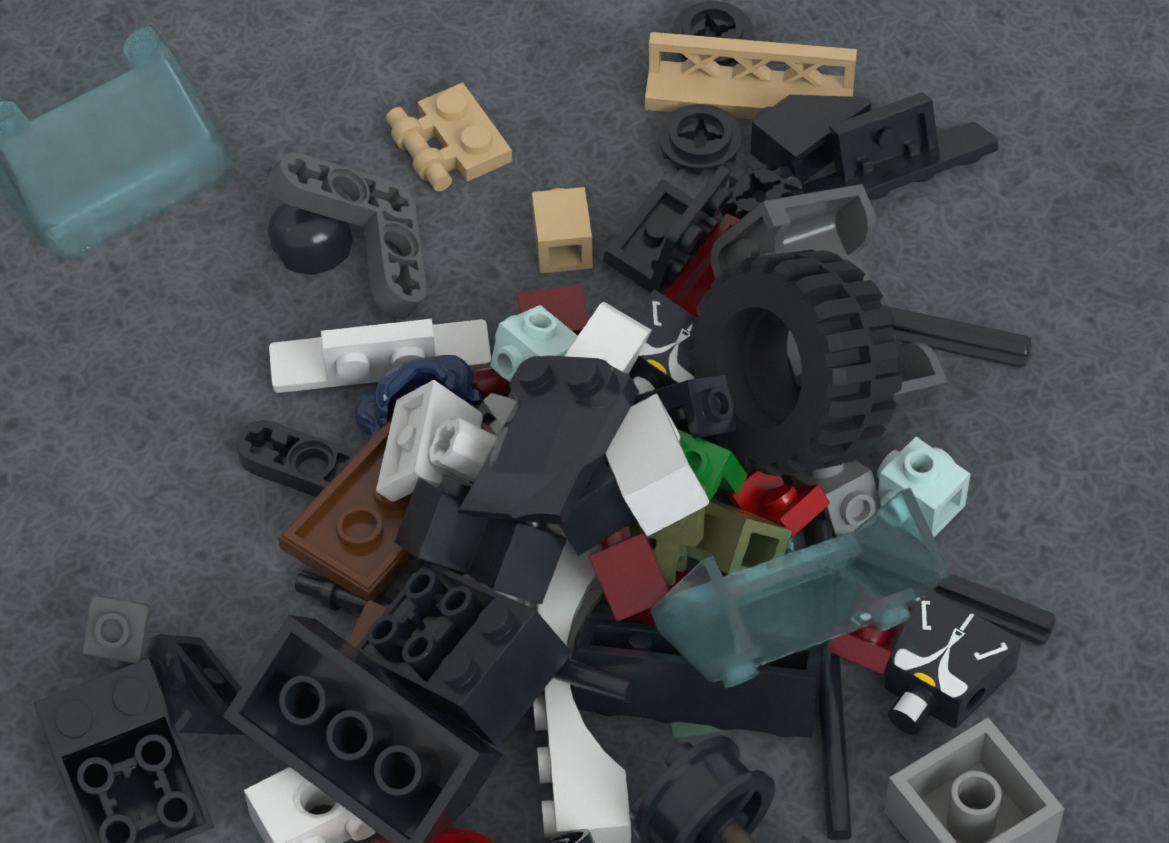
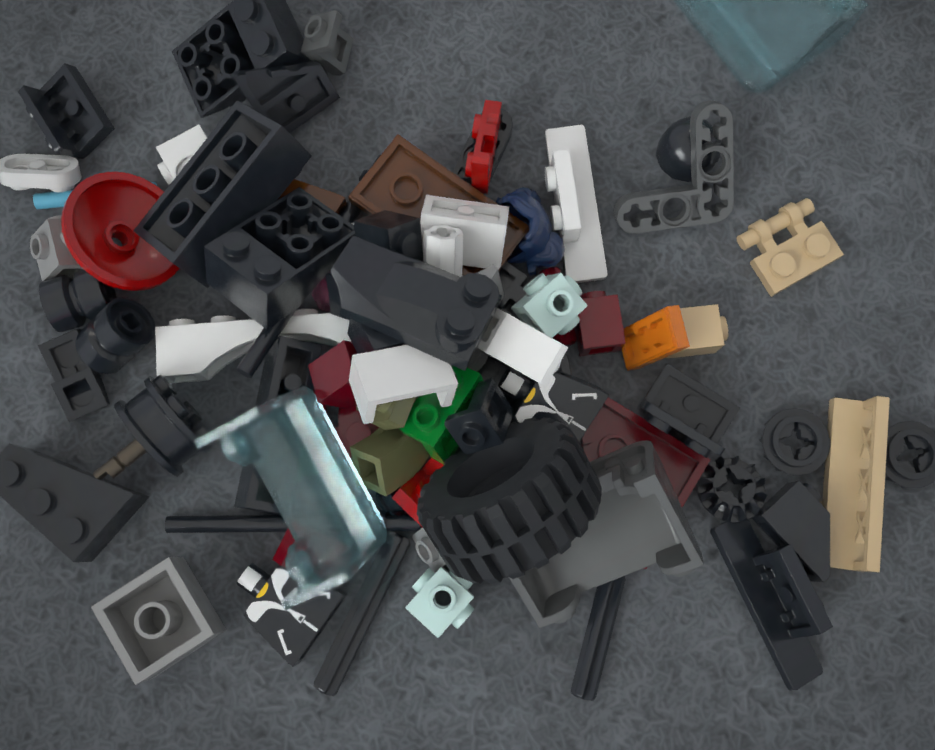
camera: 90 degrees right, 25 degrees up
(307, 428) = (485, 131): none -> red wing
(577, 251) = (654, 338): none -> orange plate

